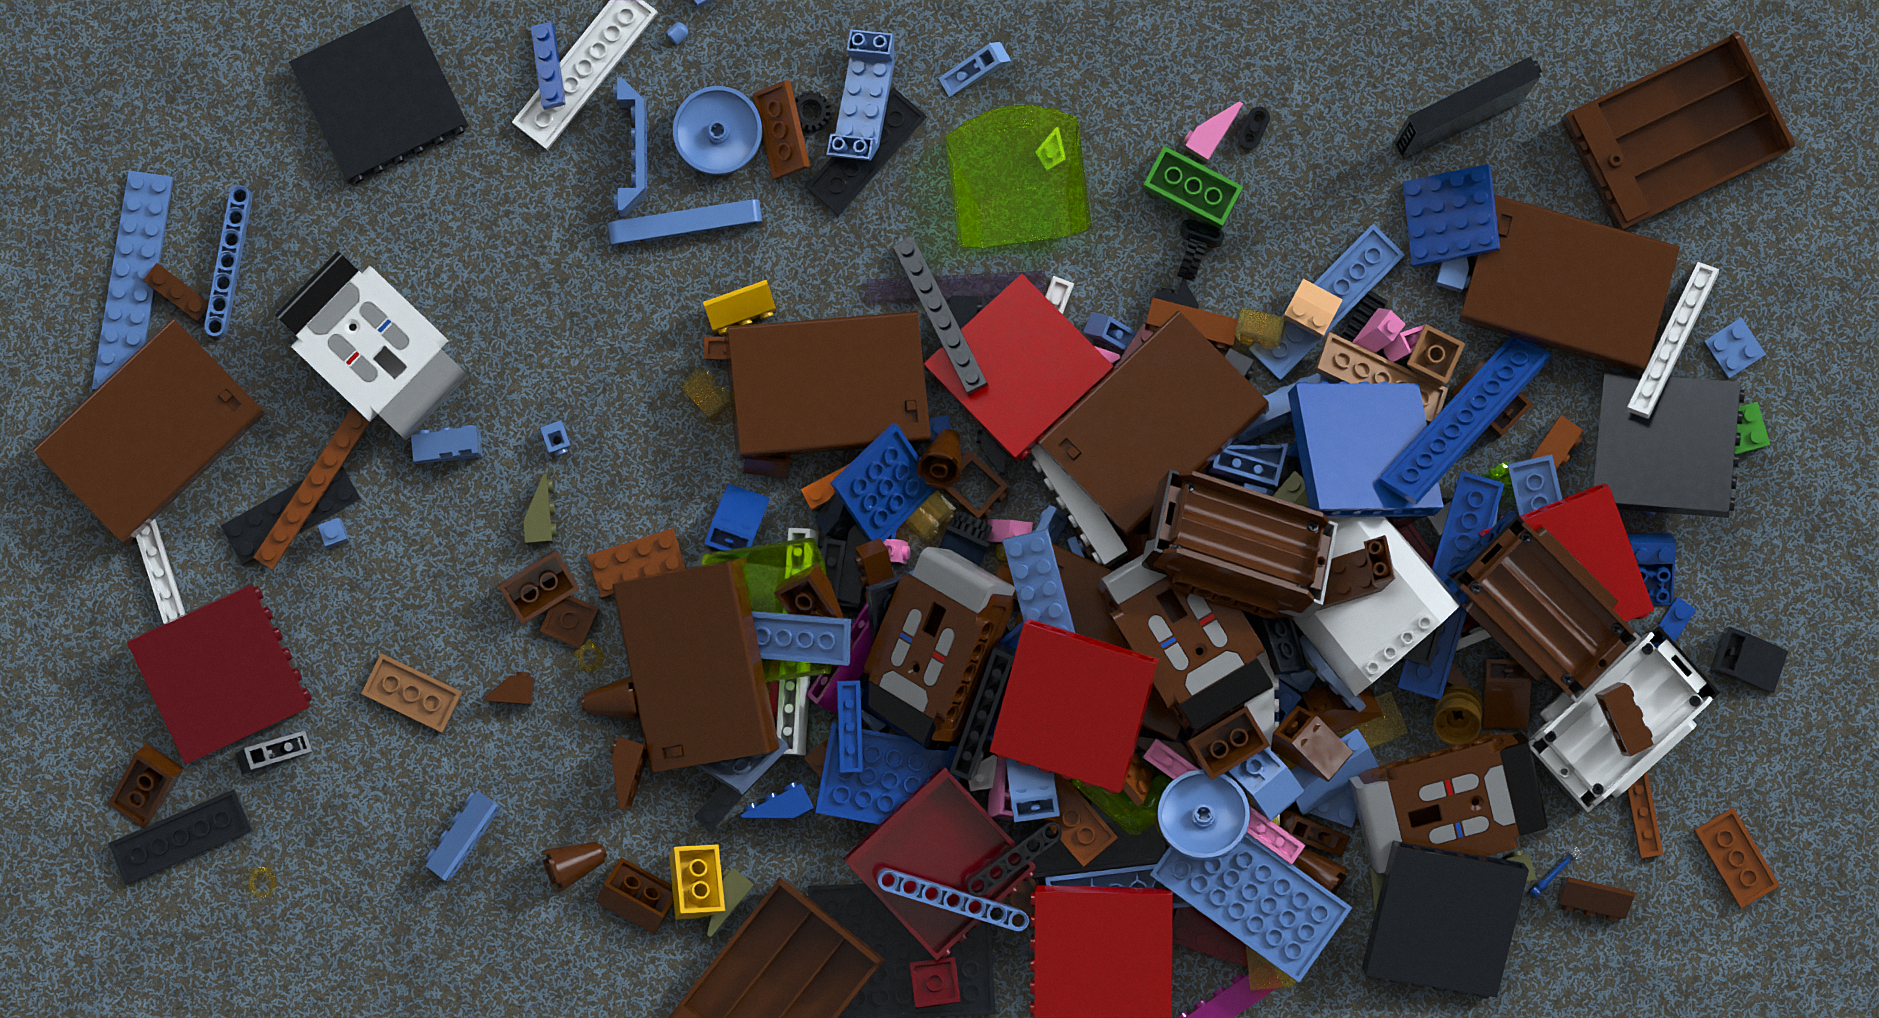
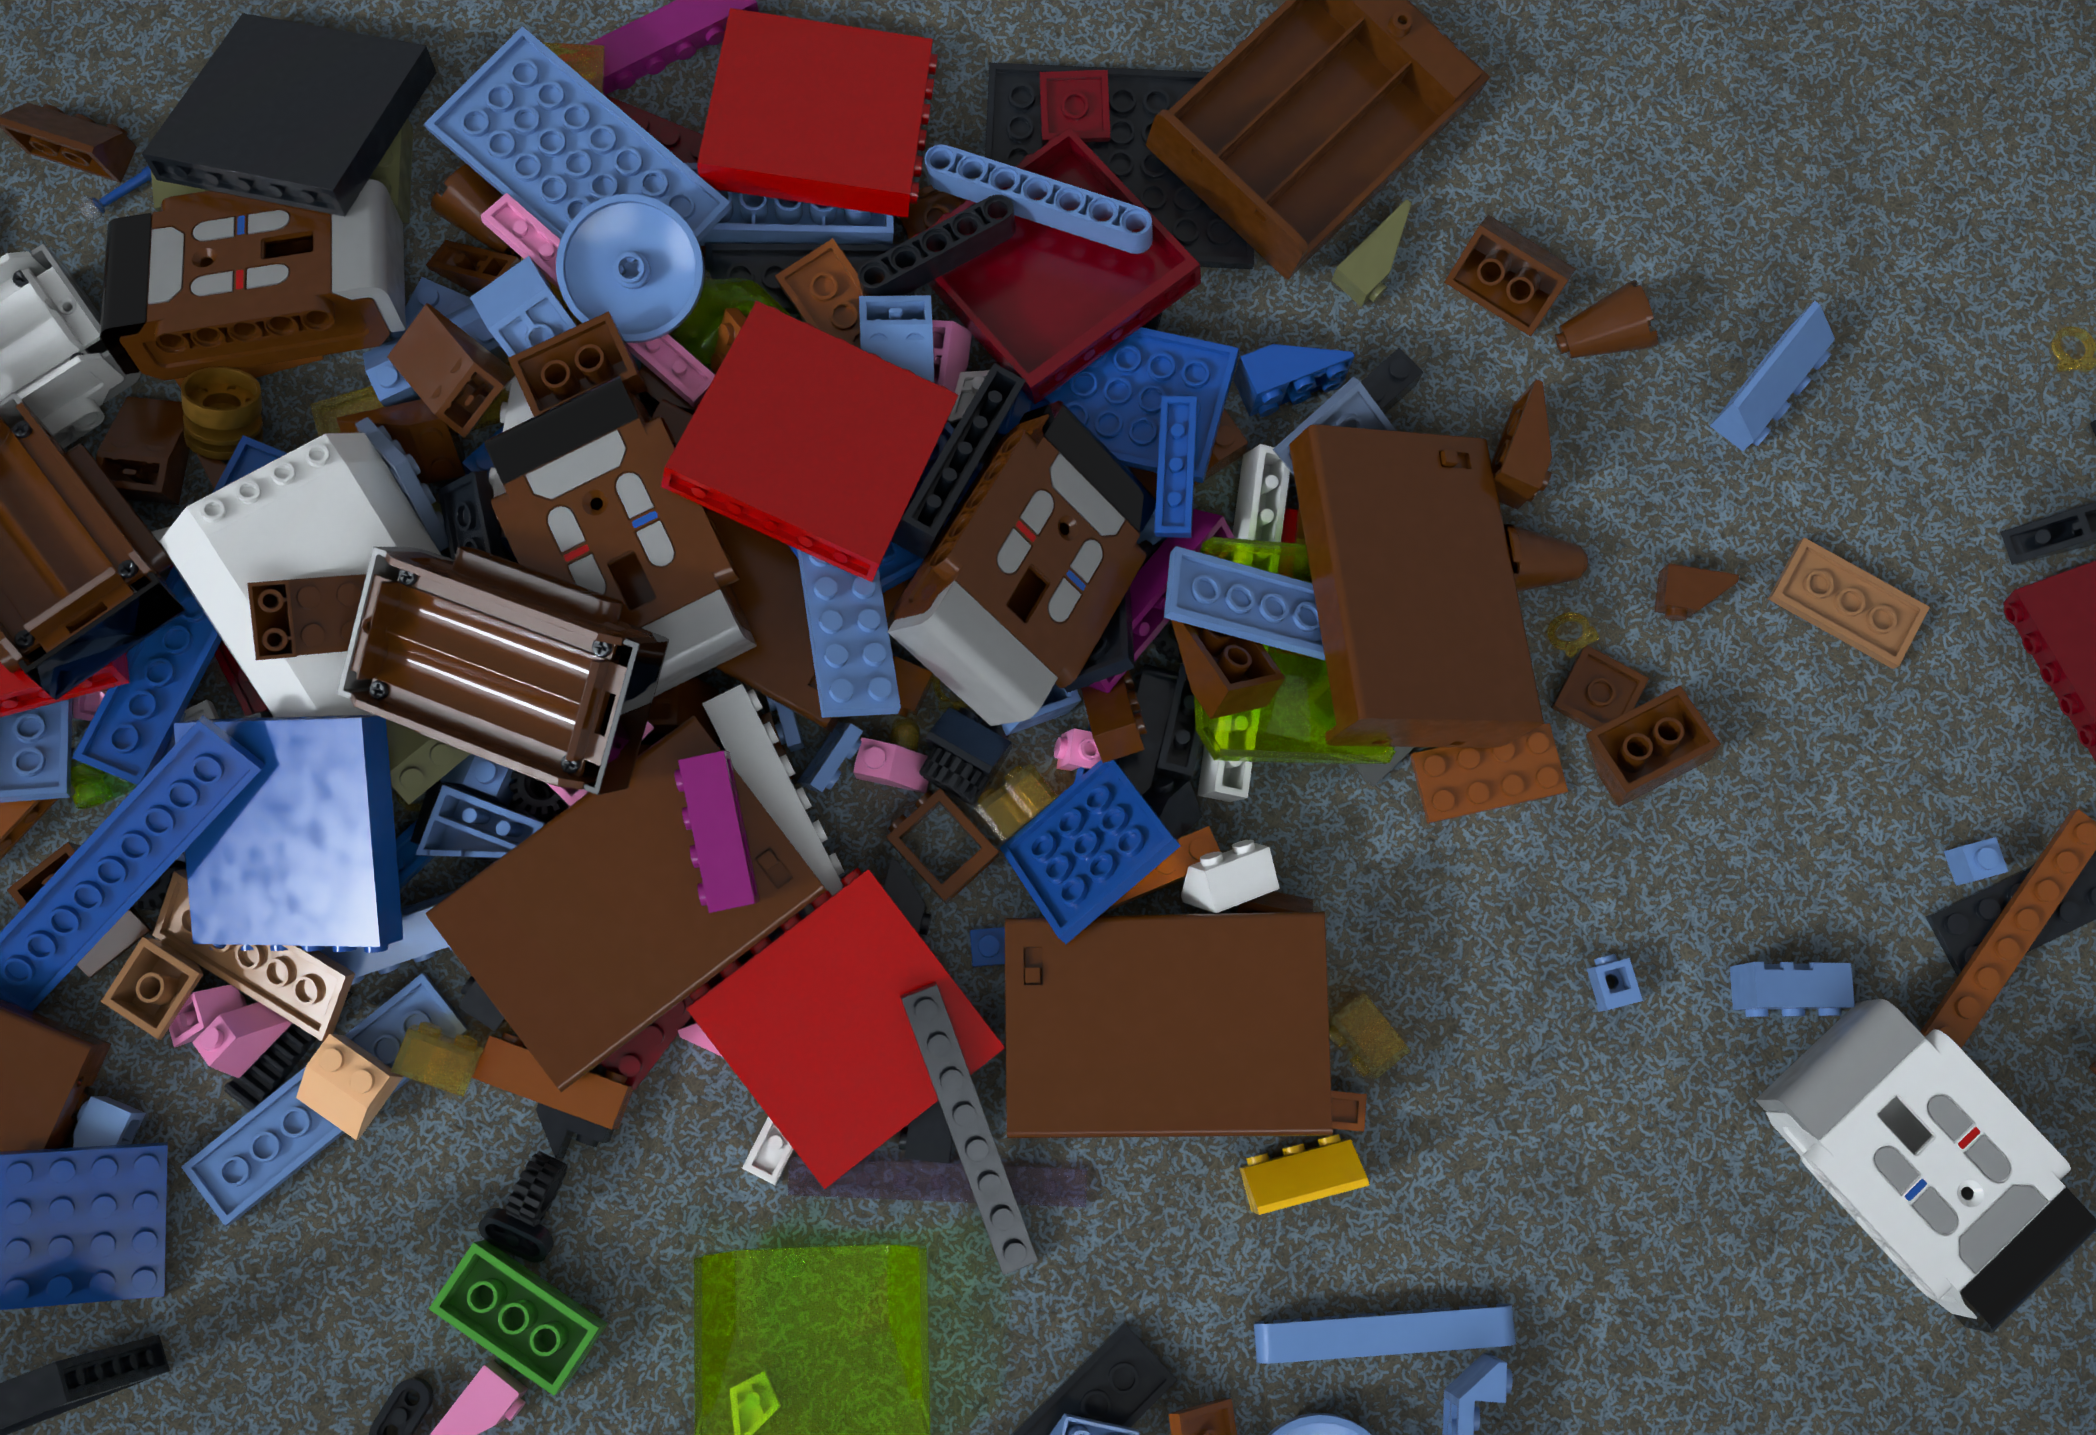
camera: 175 degrees left, 5 degrees down
(538, 519) = (1645, 853): olive slope -> none
(696, 881) = (1422, 278): yellow slope -> none
(736, 519) = (1328, 821): blue slope -> none
(795, 475) = (1230, 877): none -> white slope
(942, 460) = (988, 884): reddish brown cone -> none
(1103, 464) = (717, 830): none -> magenta brick
(1109, 331) = (692, 1080): medium blue slope -> none

